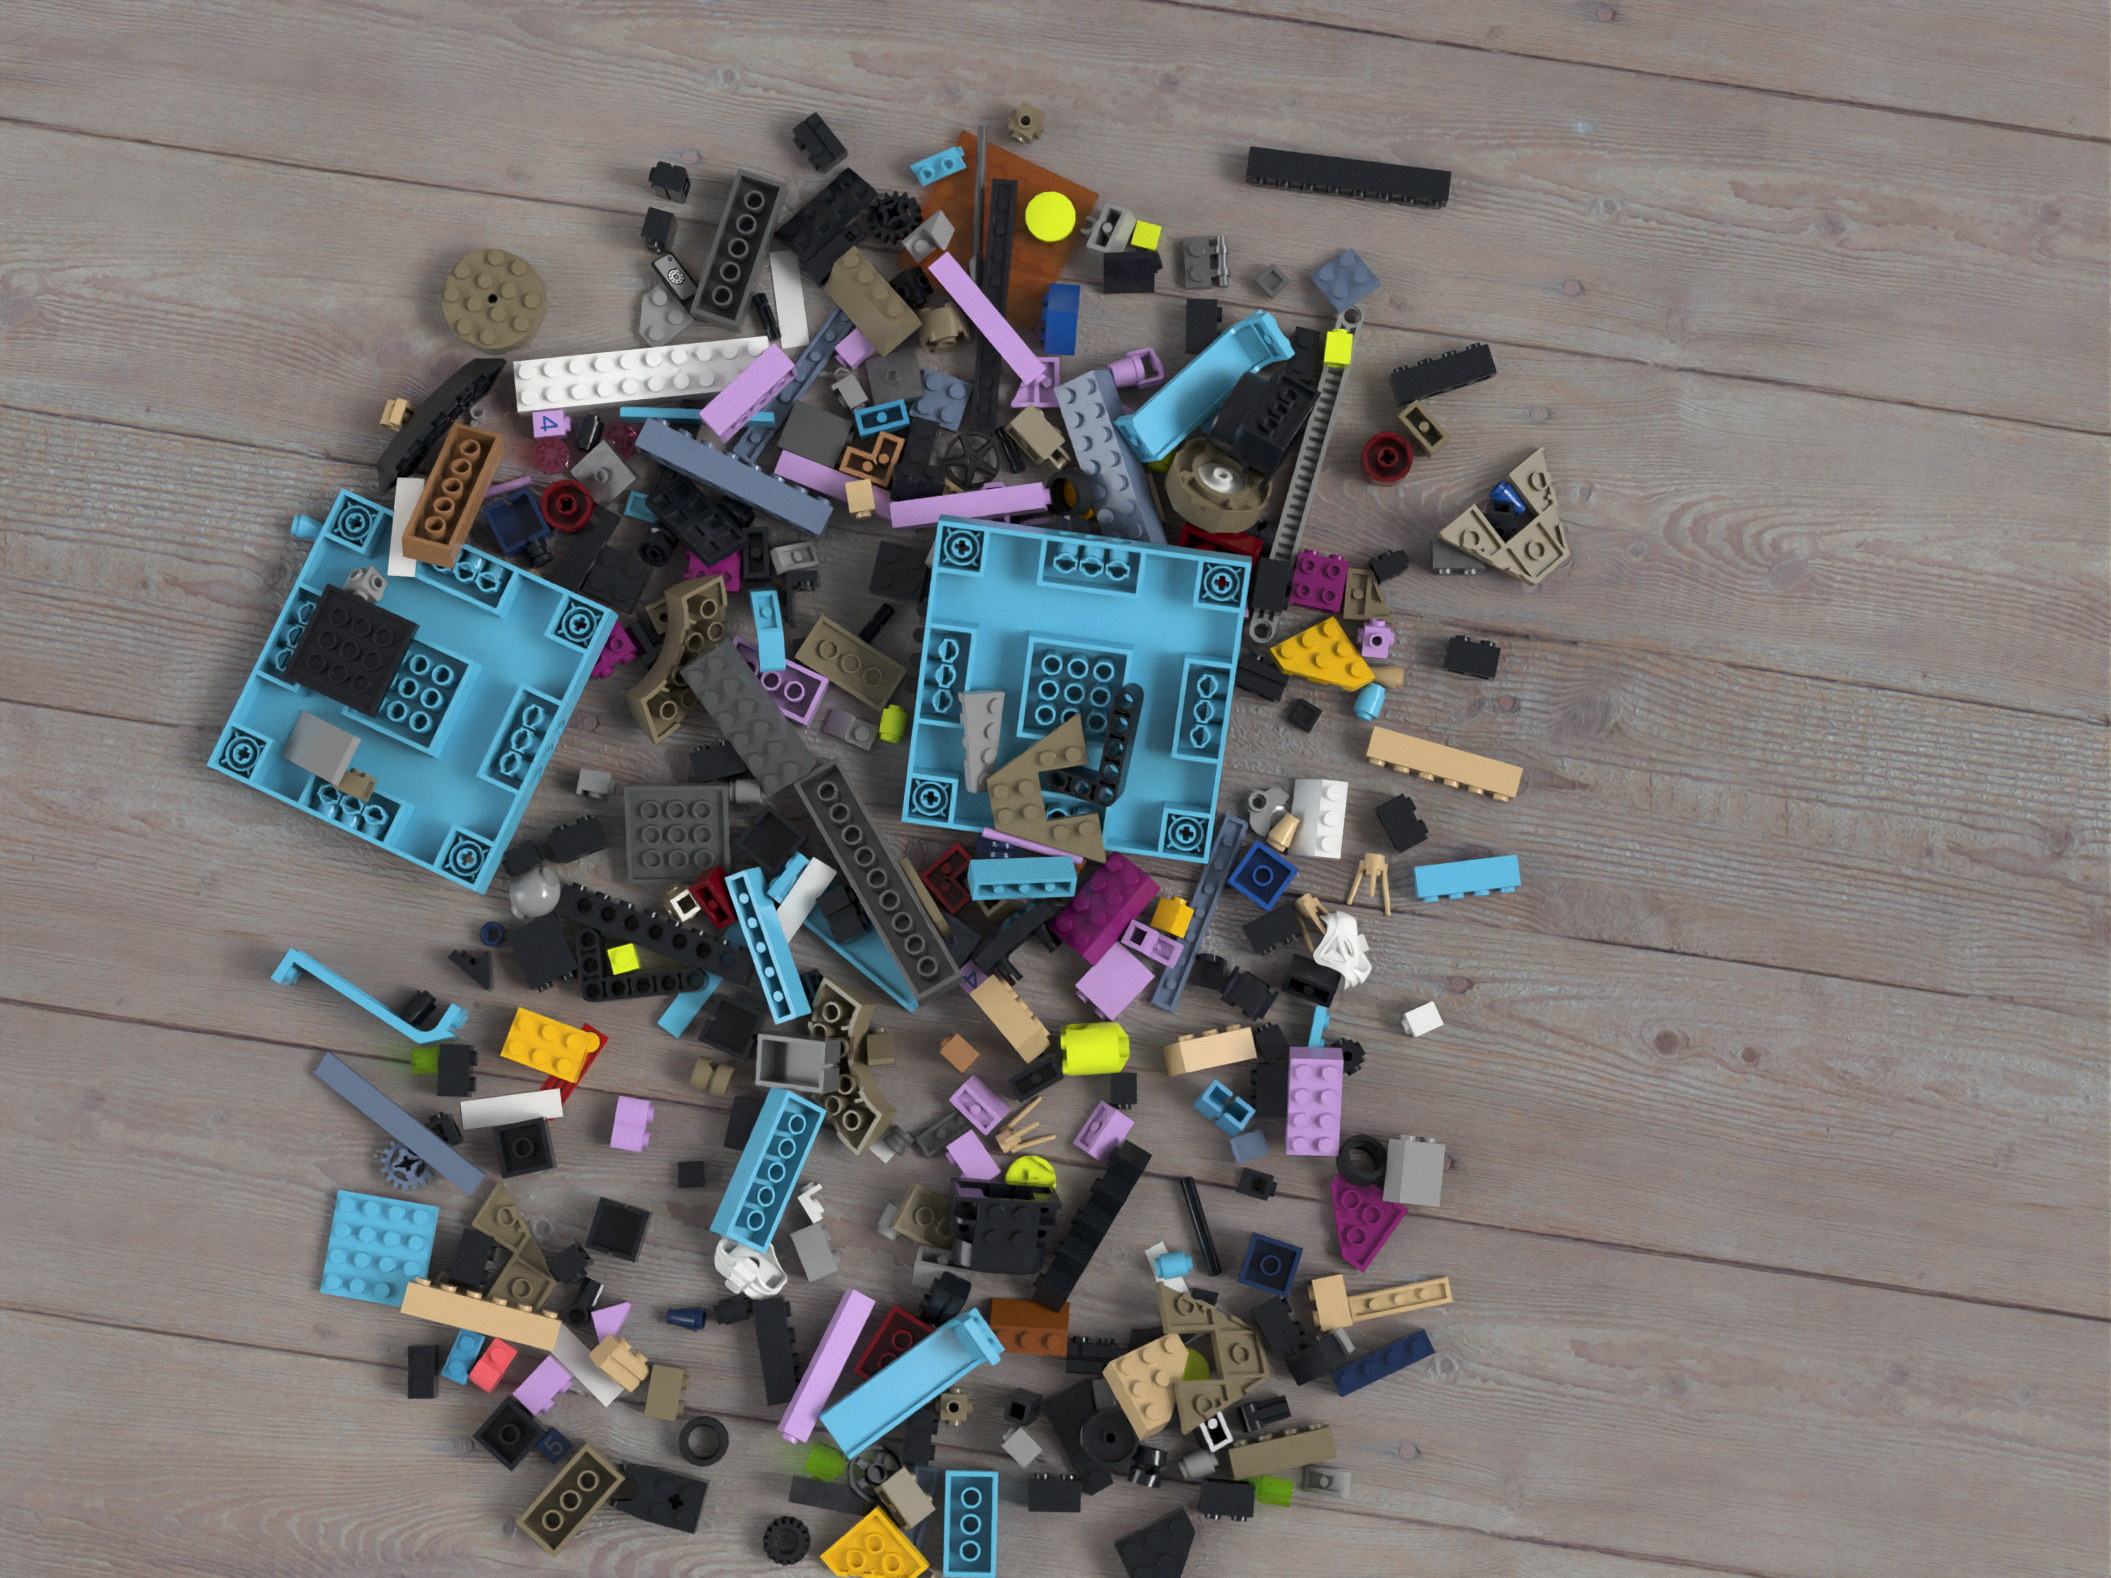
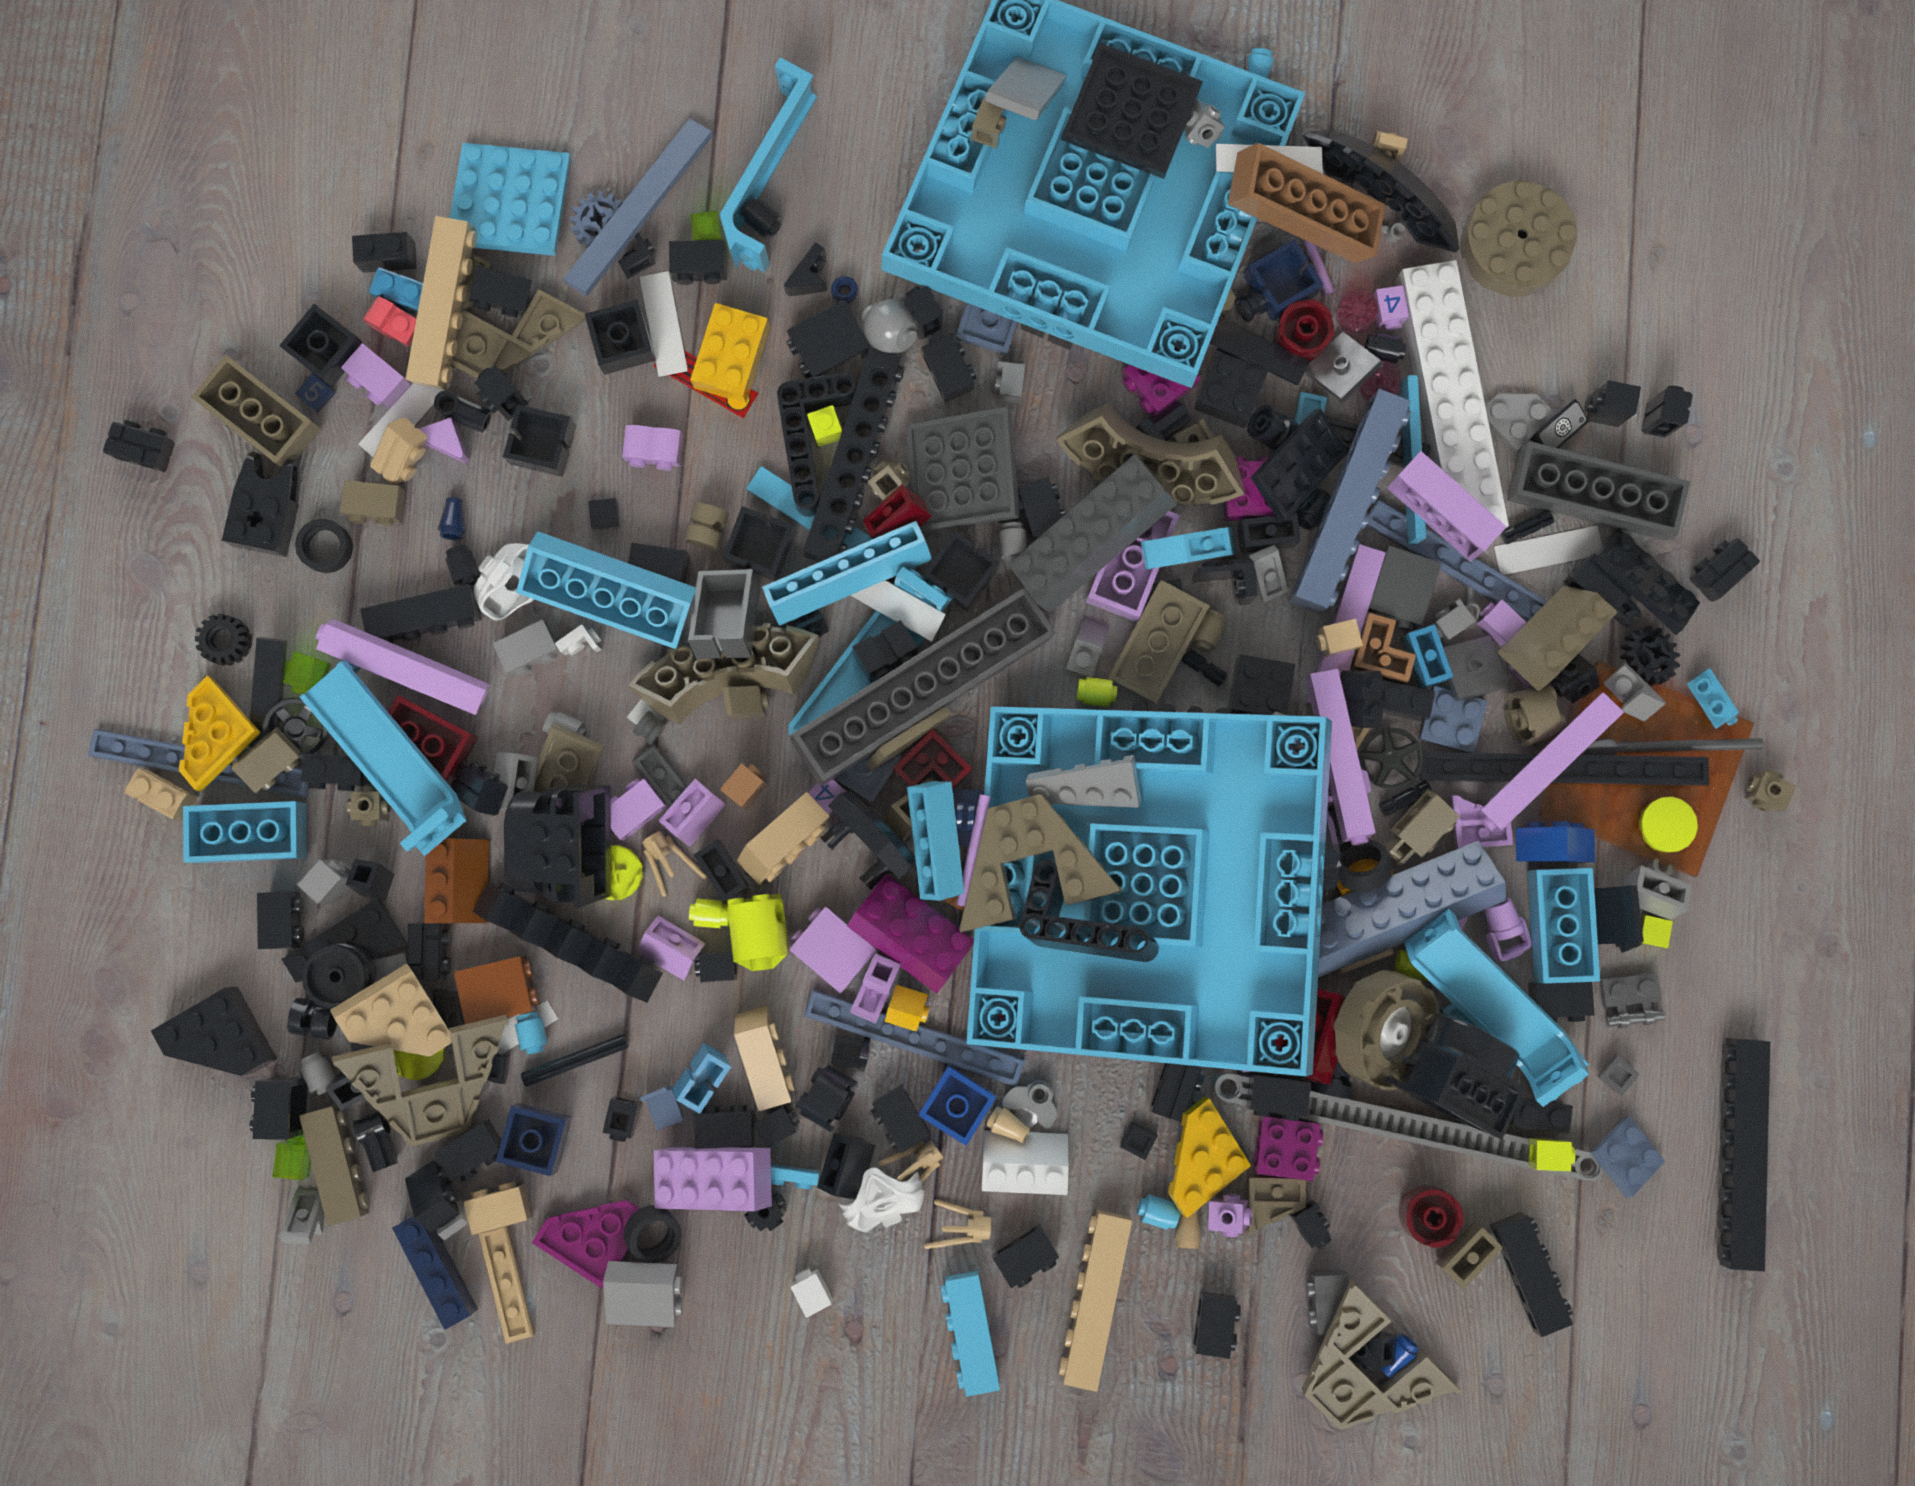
camera: 85 degrees right, 0 degrees up
(544, 803) = (986, 329): none -> sand blue plate
(844, 616) = (1209, 631): none -> dark tan brick
(1074, 1093) = (709, 913): none -> neon yellow brick
(1132, 1294) = (497, 989): none -> dark orange brick
(1135, 319) = (1563, 925): none -> medium azure brick

